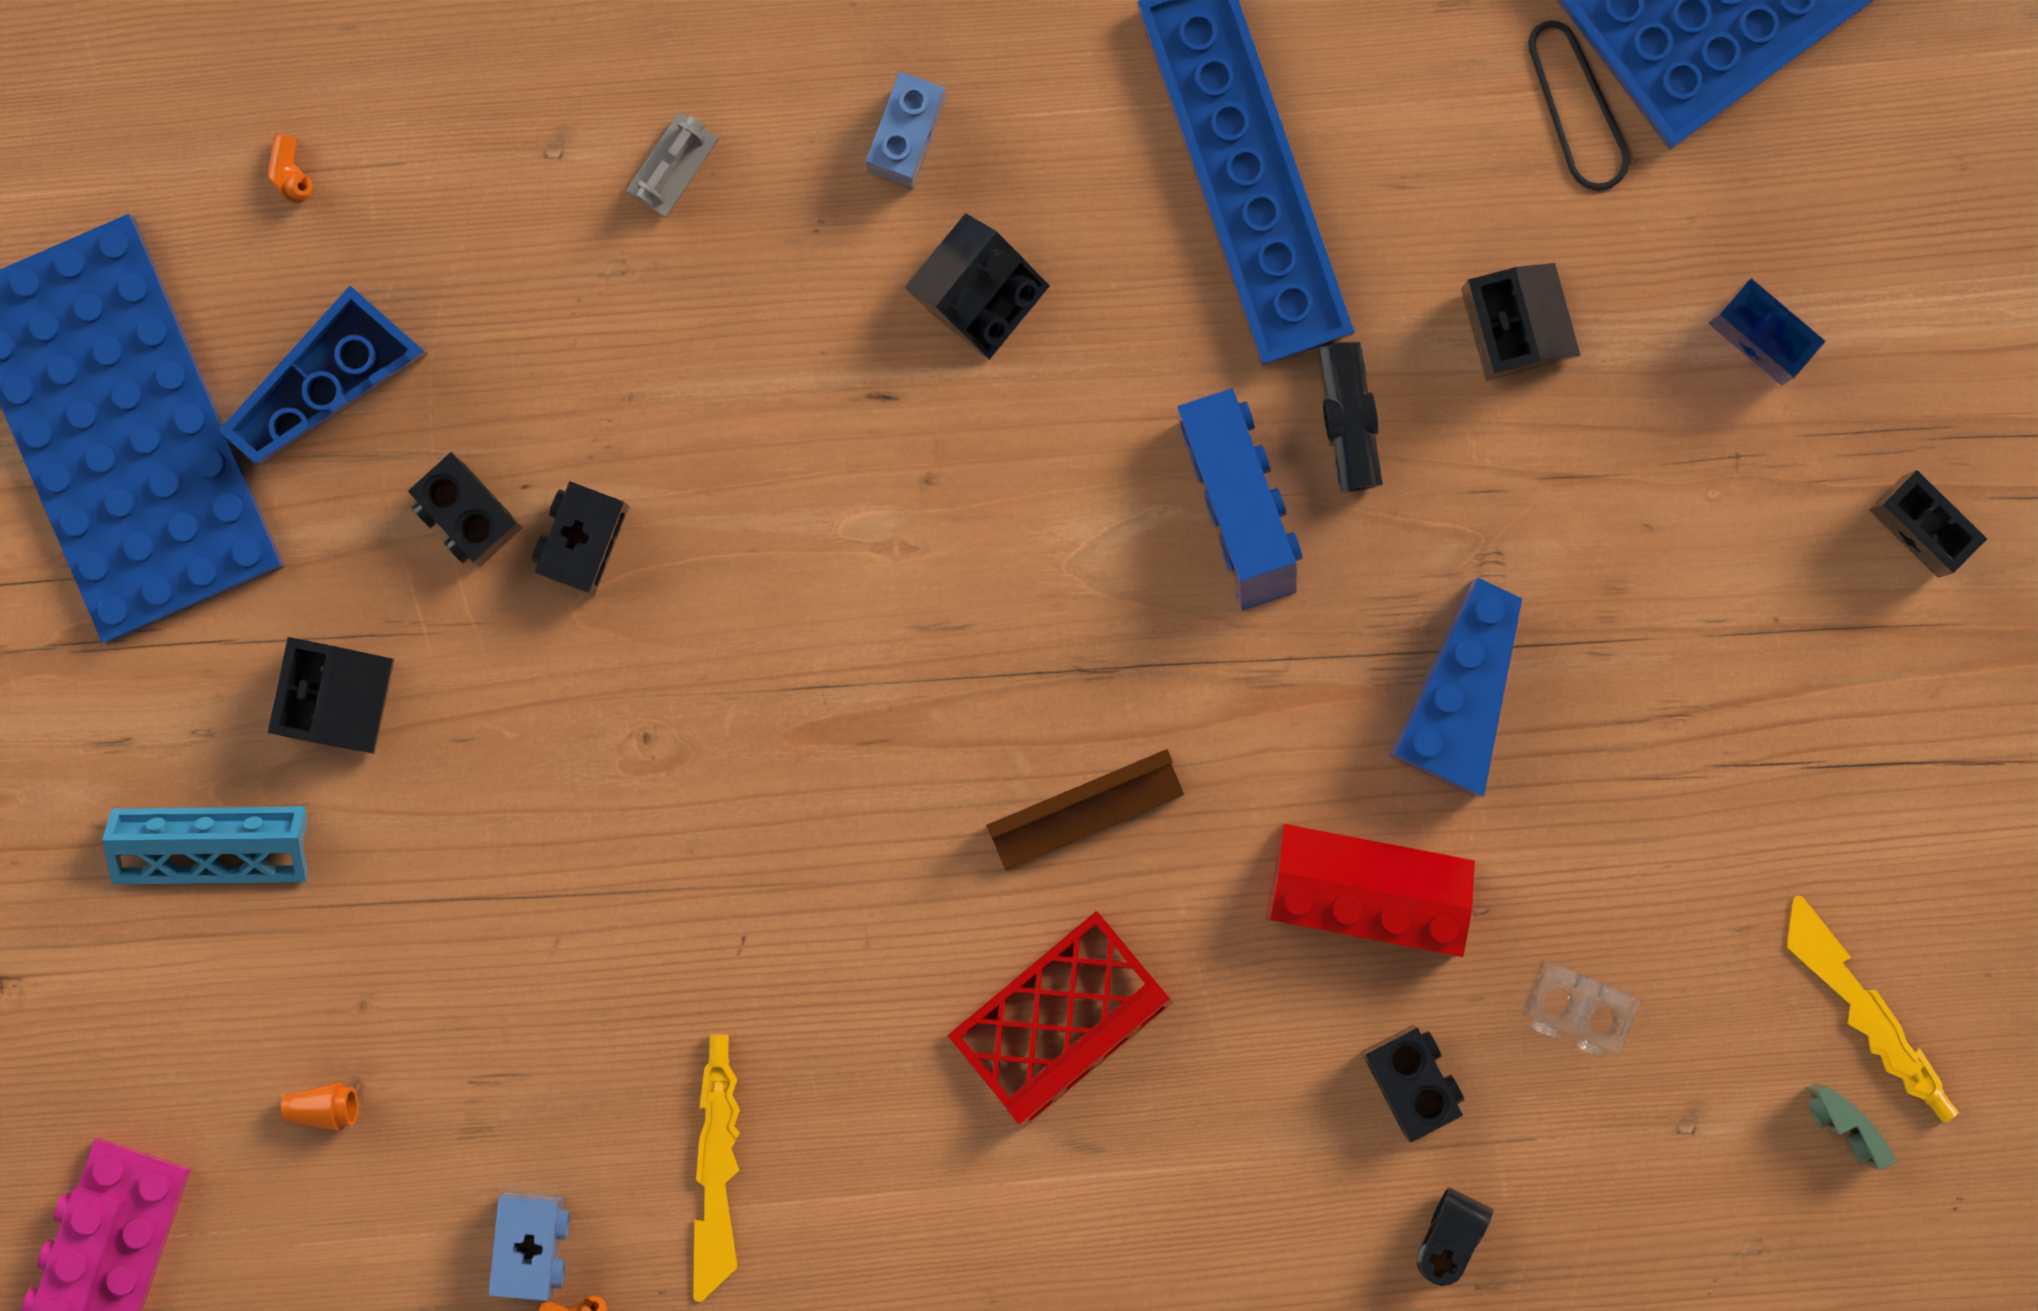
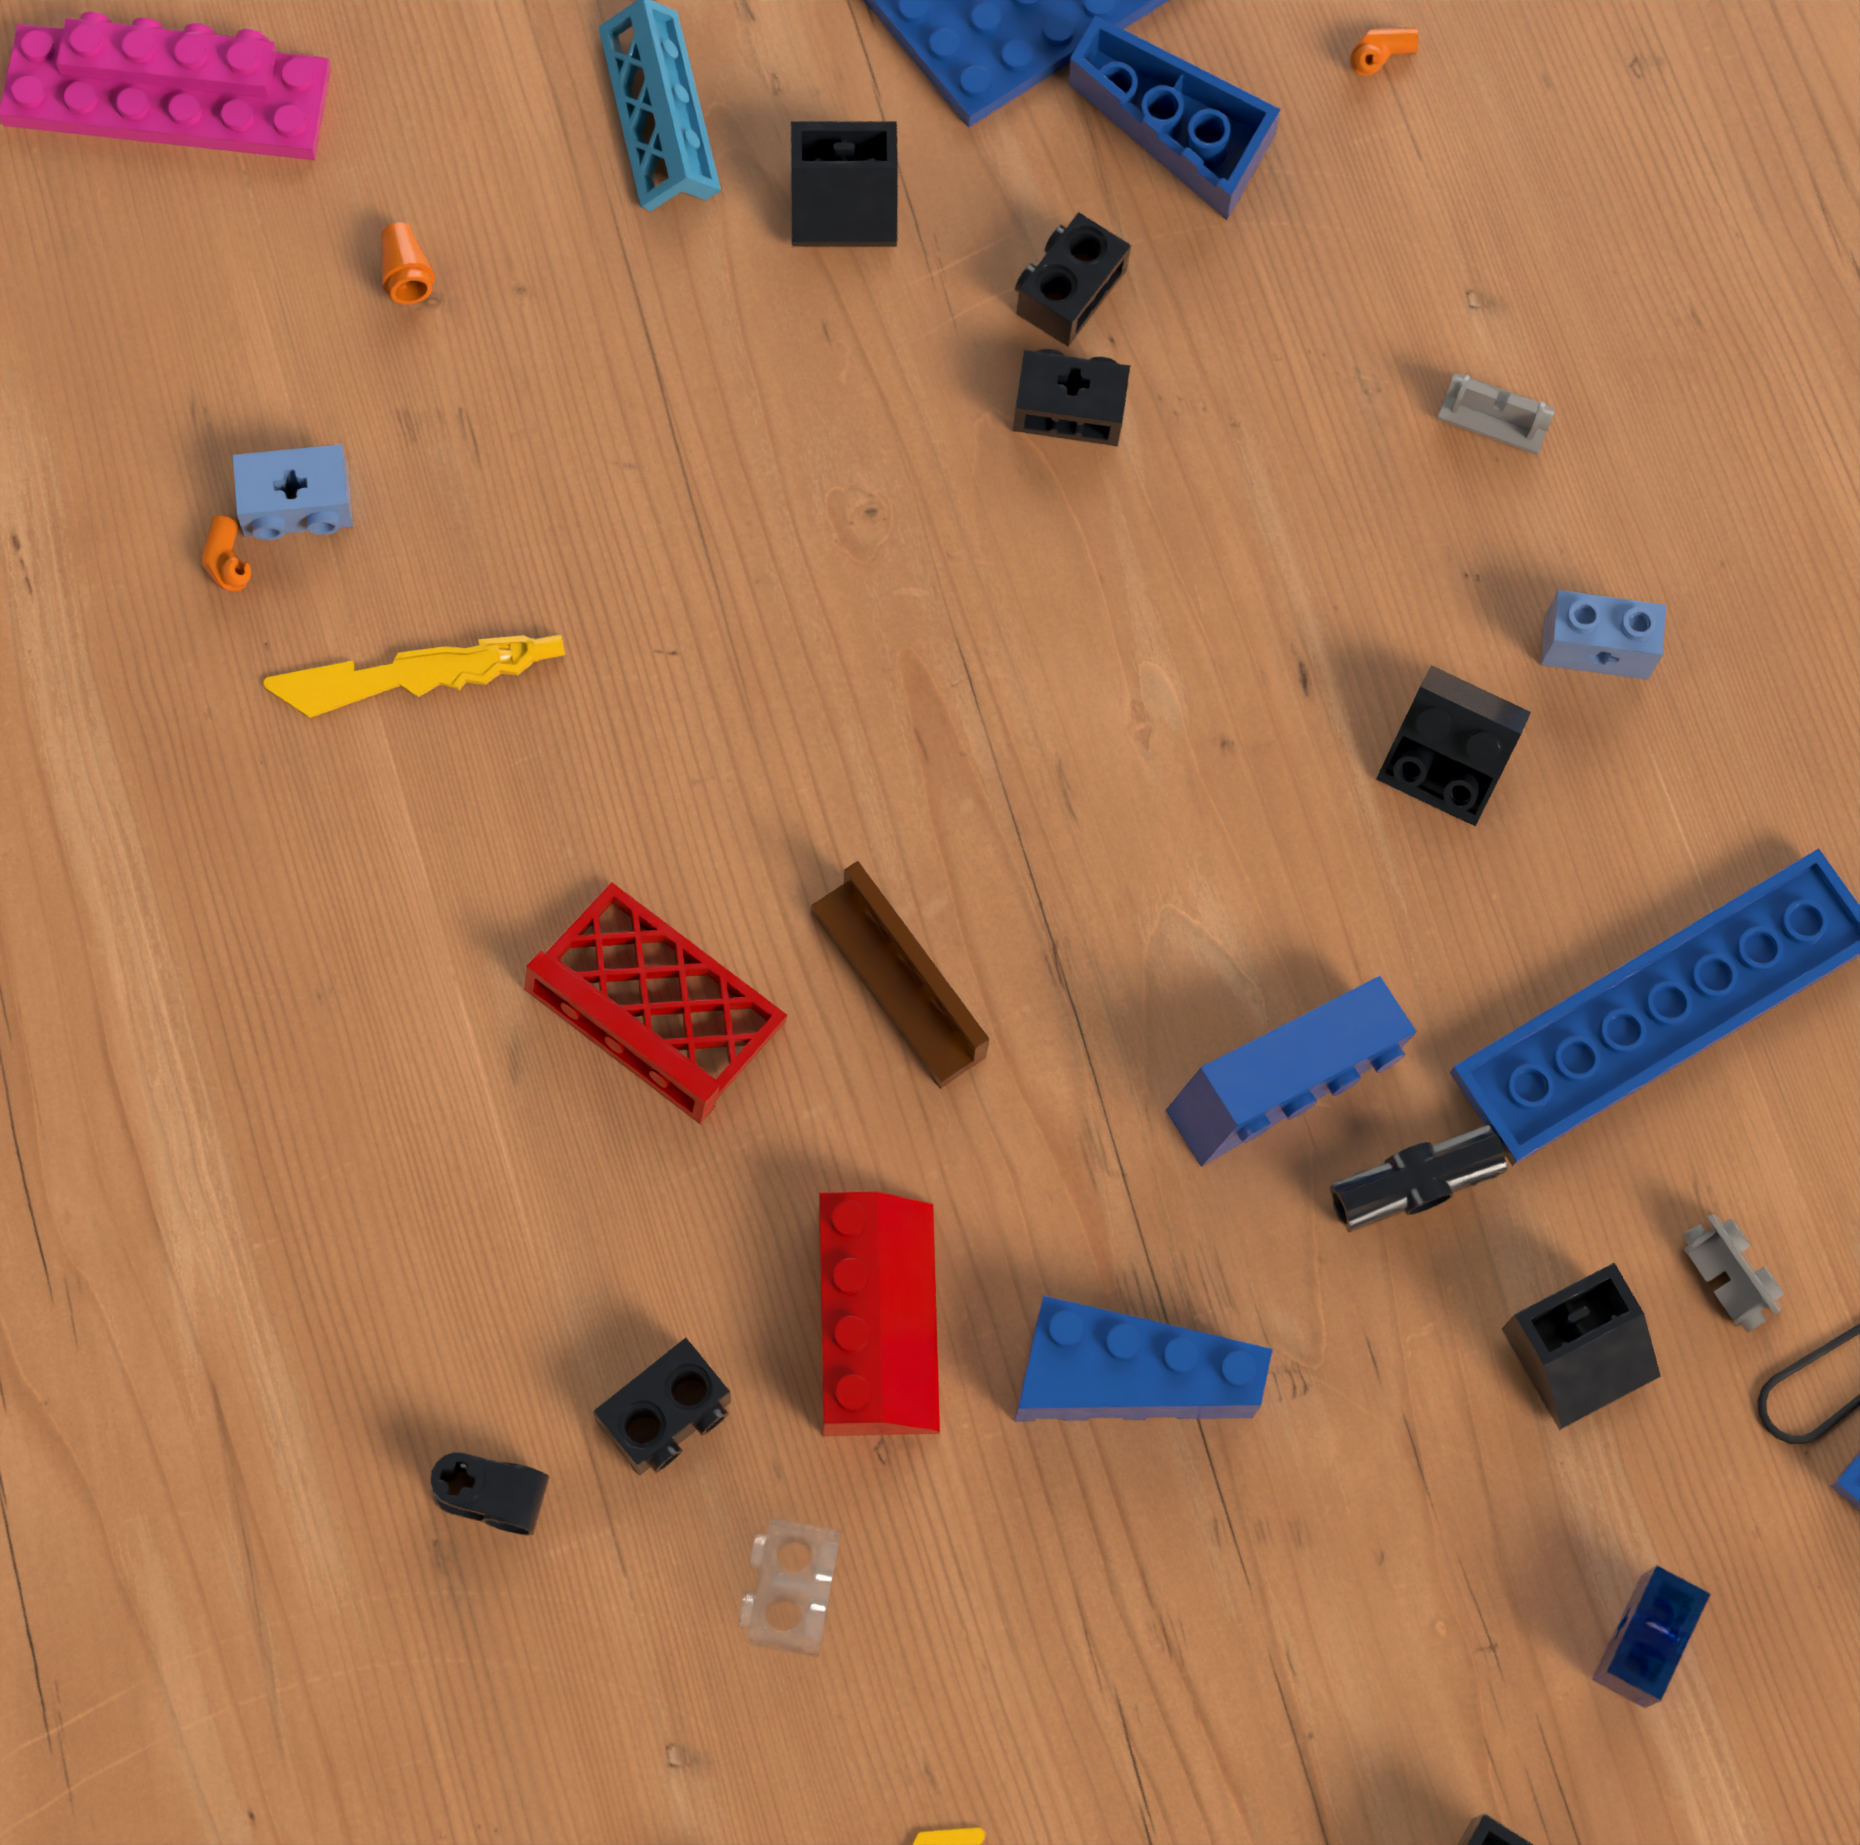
camera: 70 degrees right, 15 degrees down
(1498, 169) = (1723, 1251): none -> light grey hinge

